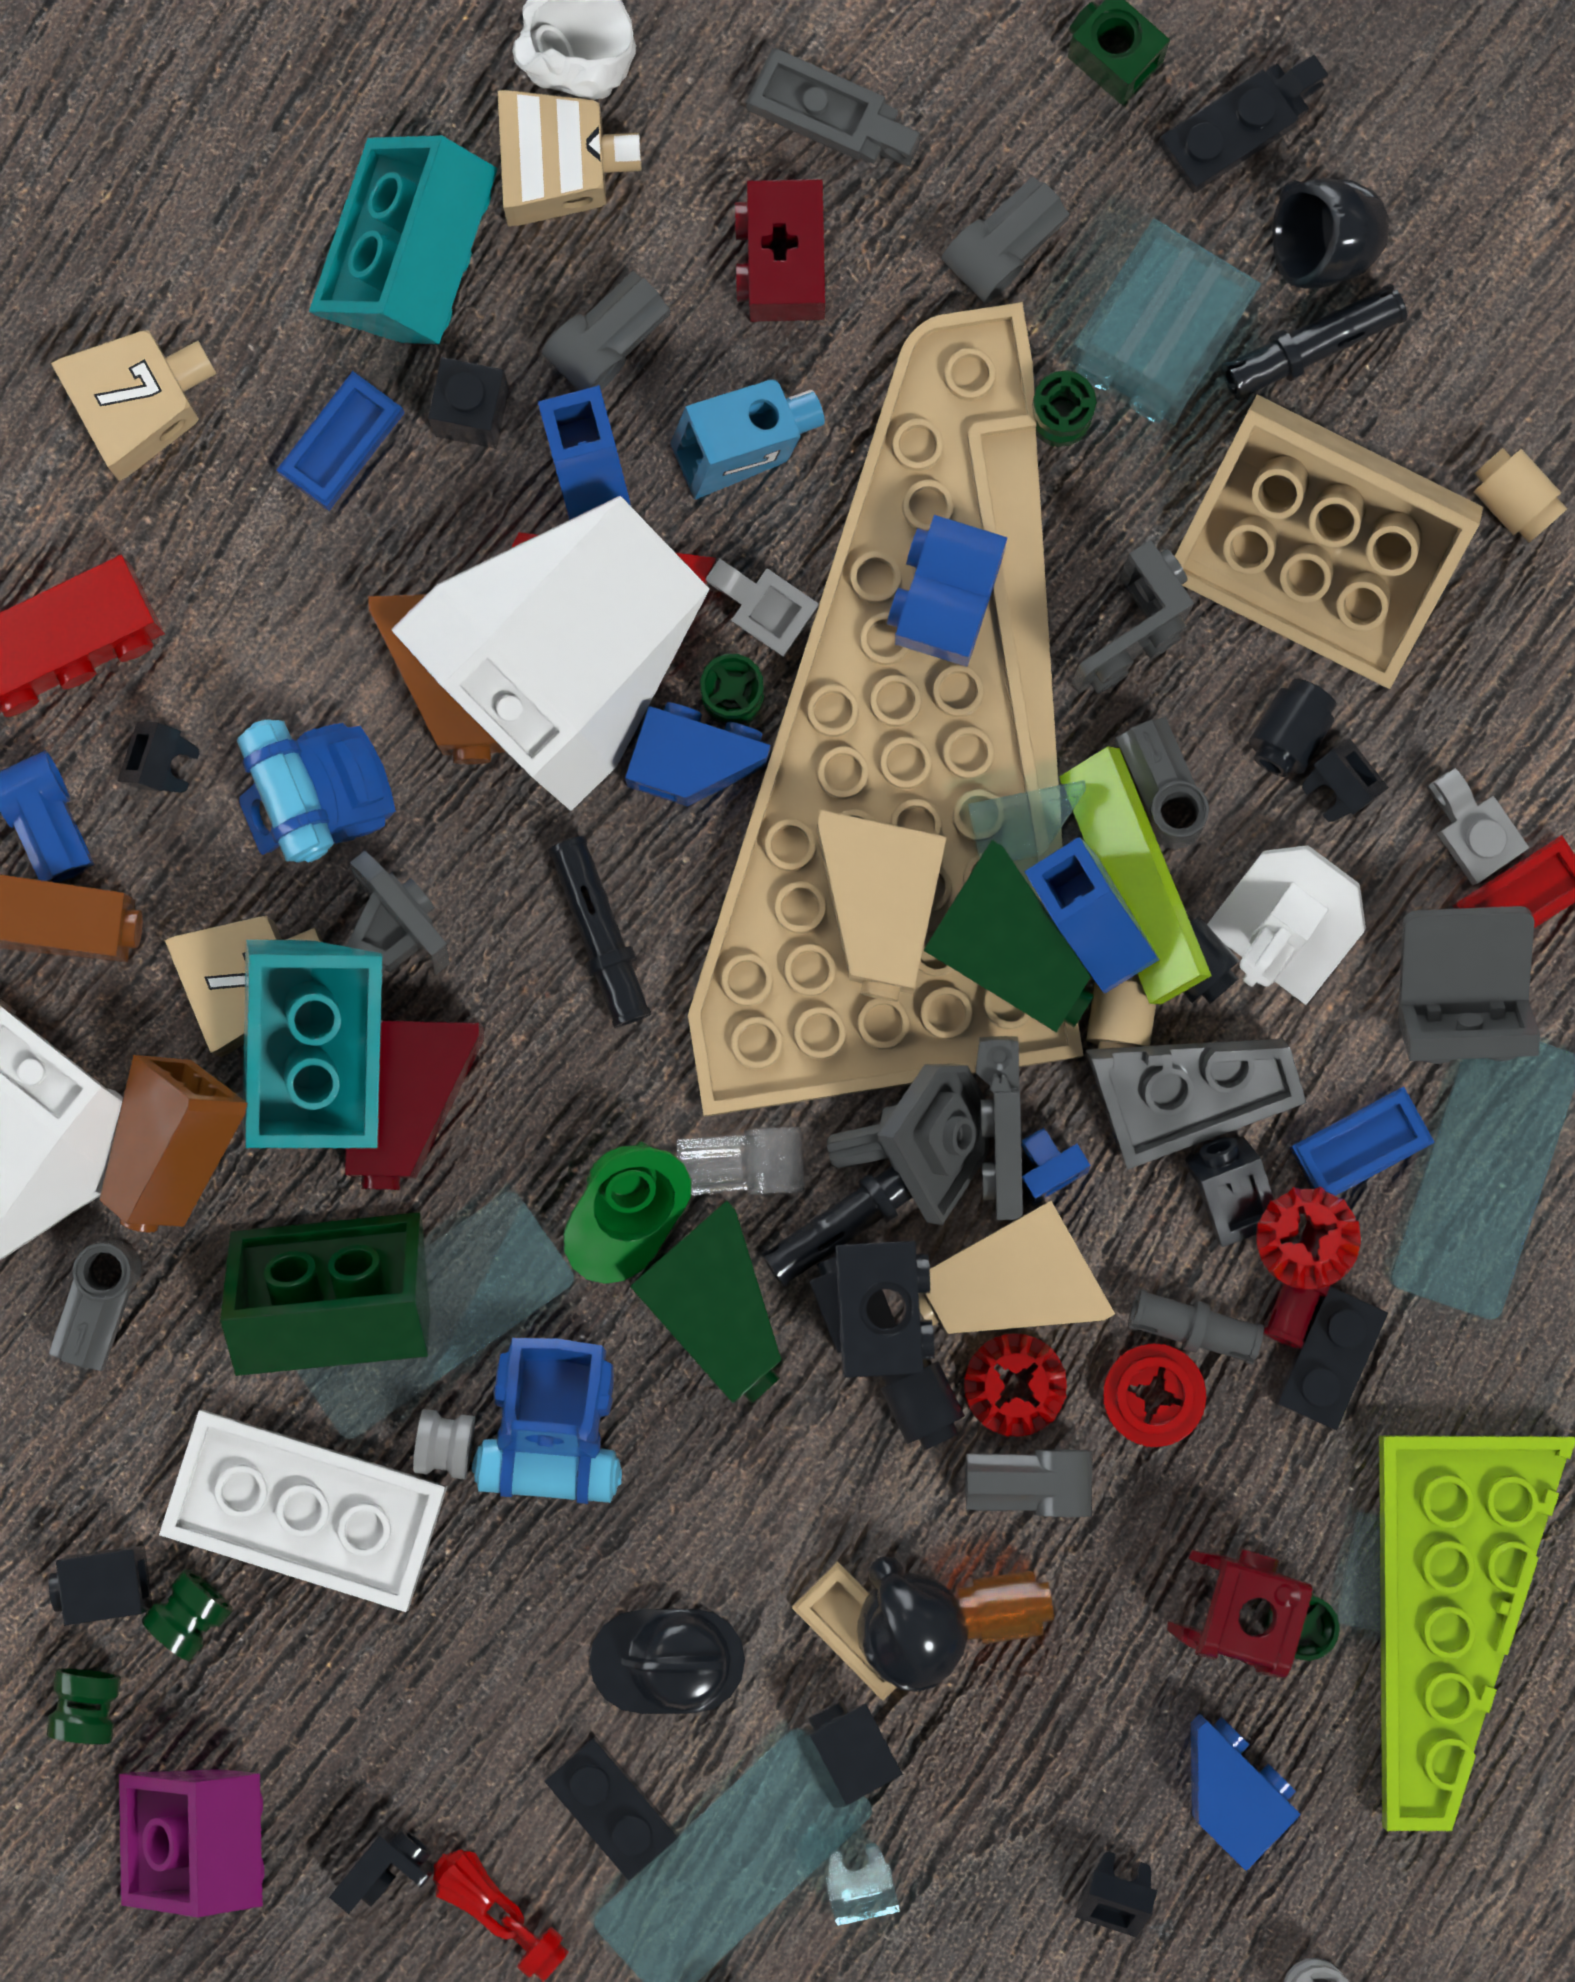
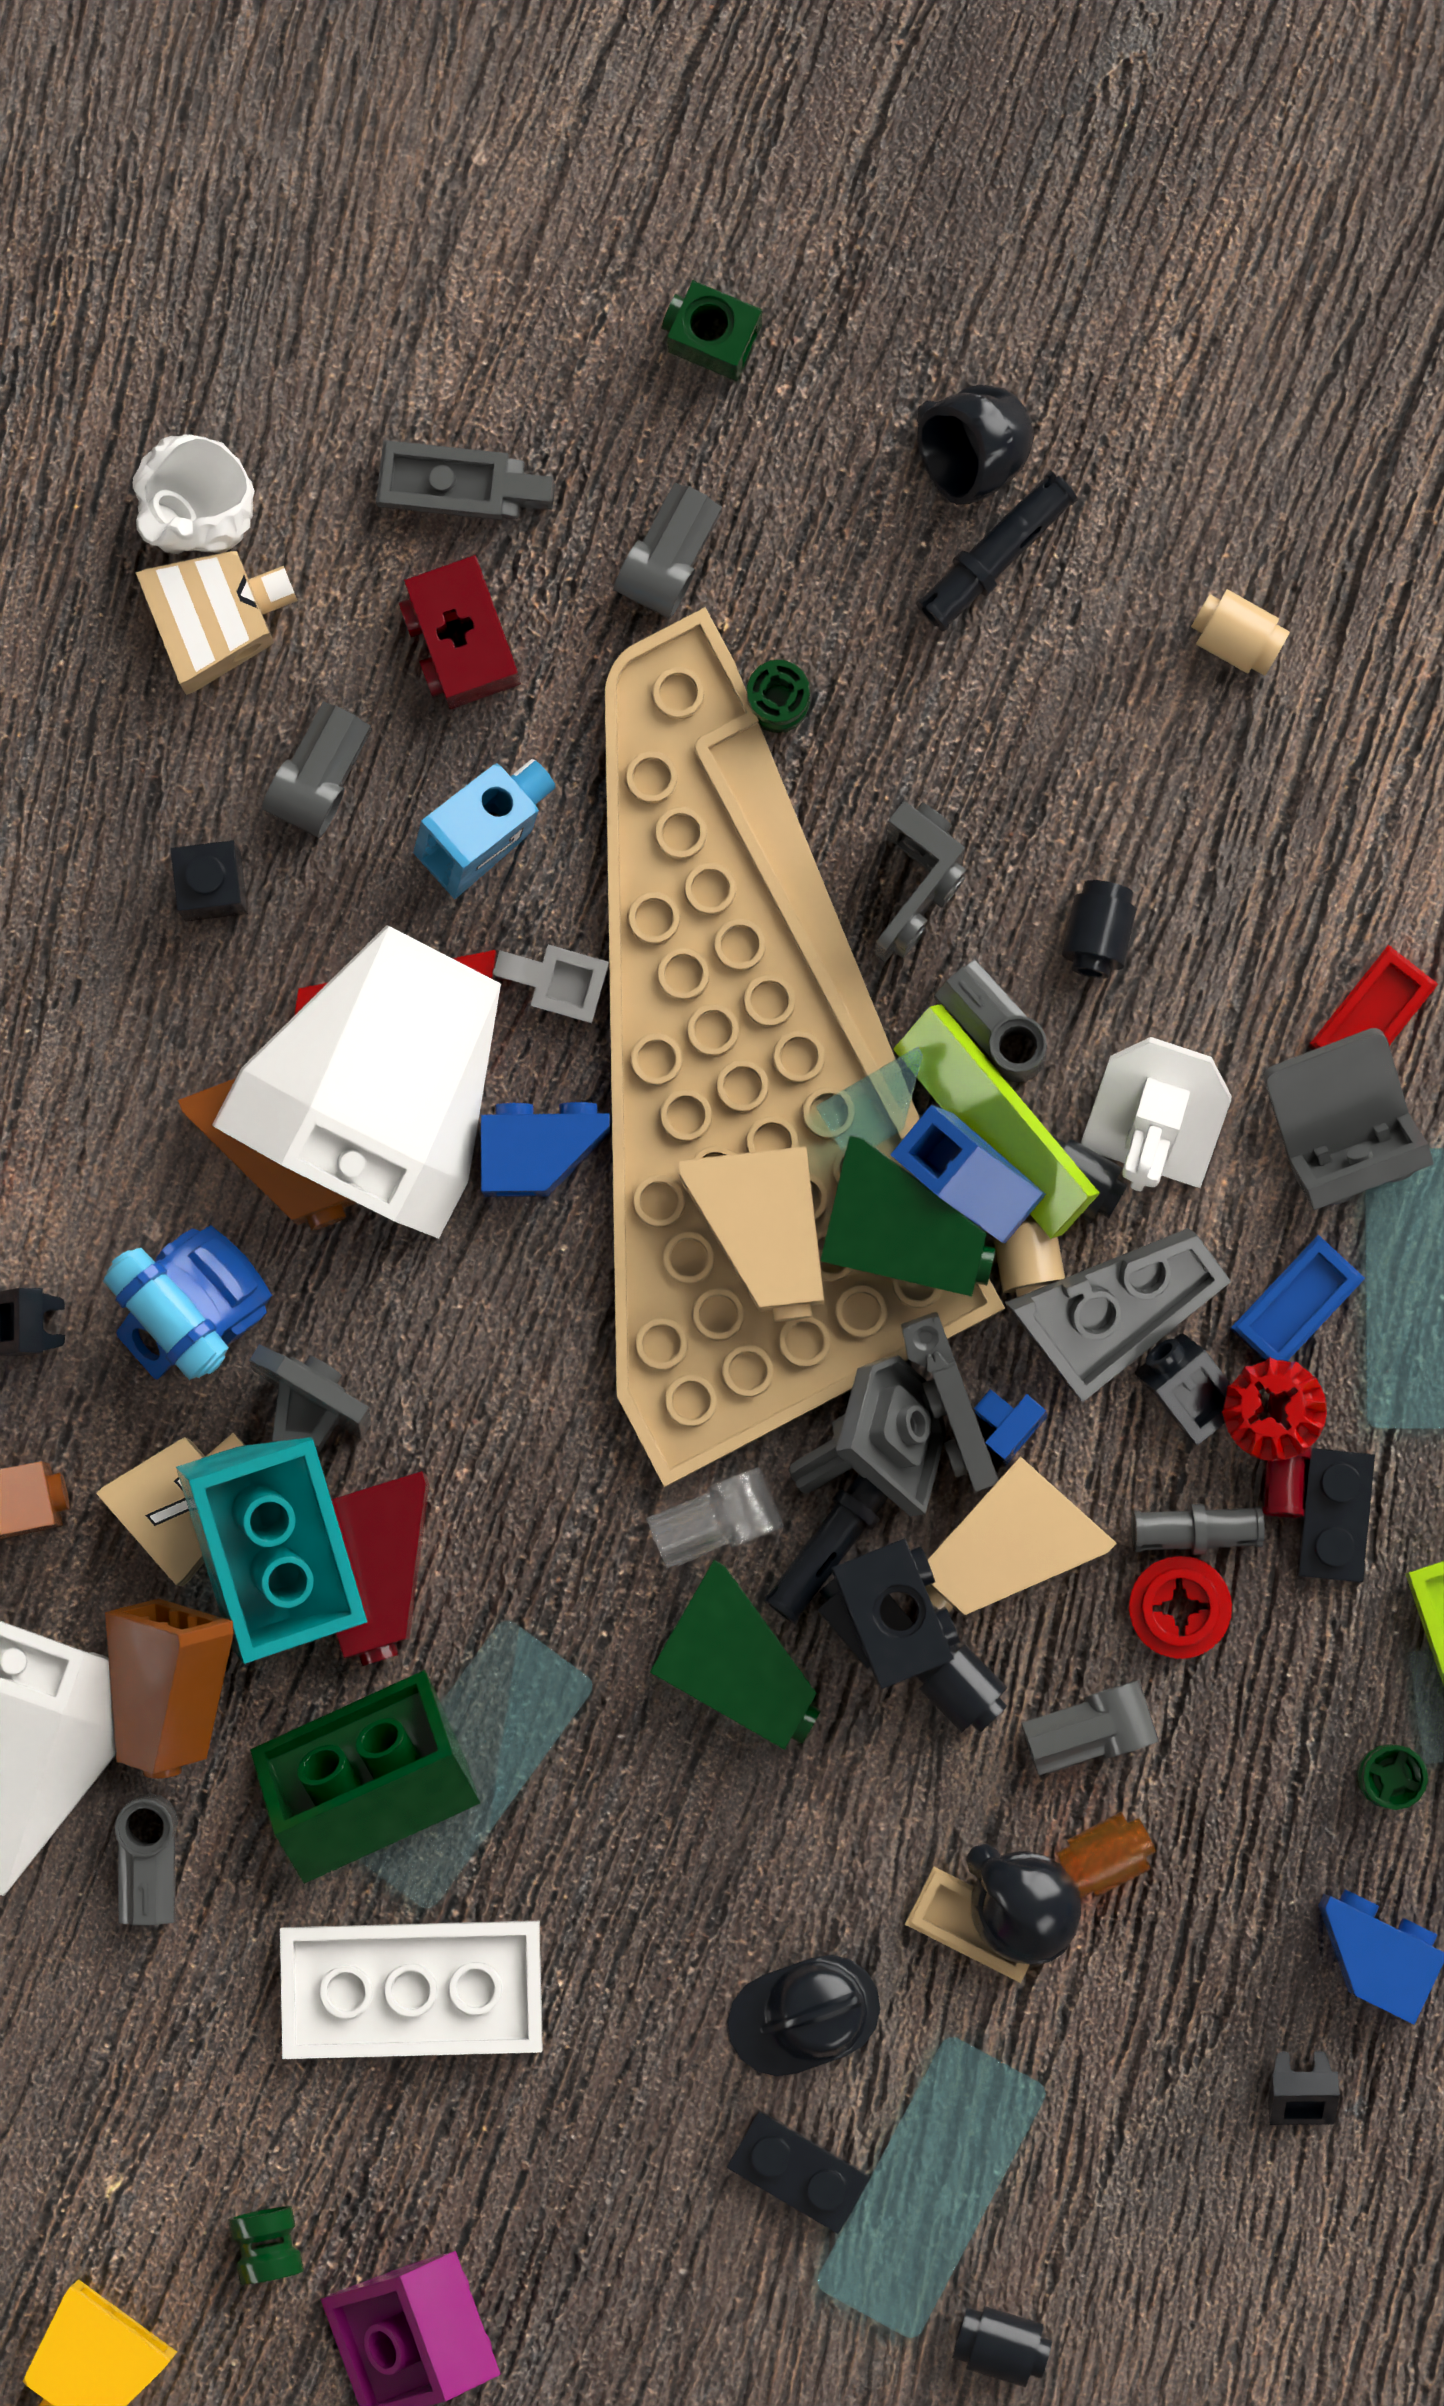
camera: 15 degrees left, 0 degrees up
(101, 1585) = (243, 2125): black brick -> none
(190, 1611) = (335, 2123): dark green wheel -> none
(340, 441) = (96, 957): blue tile -> none
(370, 1874) = (592, 2311): black bracket -> none
(404, 238) = (92, 742): teal slope -> none
(444, 1444) = (523, 1881): light grey wheel -> none
(465, 1883) = (686, 2290): red piece -> none
(550, 1423) = (618, 1827): blue piece -> none
(583, 450) = (336, 893): blue slope -> none
(600, 933) = (507, 1347): black pin -> none
(625, 1212) = (621, 1603): green piece -> none
(728, 679) = (546, 1064): dark green wheel -> none
(848, 1753) = (1004, 2042): black brick -> none
(861, 1892) = (1061, 2169): clear light blue tile -> none
(948, 589) = (728, 909): blue brick -> none
(984, 1386) = (1017, 1653): red gear -> none
(1163, 323) = (846, 582): clear light blue brick -> none
(1238, 1582) = (1314, 1756): dark red piece -> none
(1241, 122) = (856, 361): black hinge -> none
(1325, 541) = (1070, 739): tan slope -> none
(1350, 778) = (1169, 958): black tile -> none
(1479, 834) = (1310, 970): light grey plate -> none

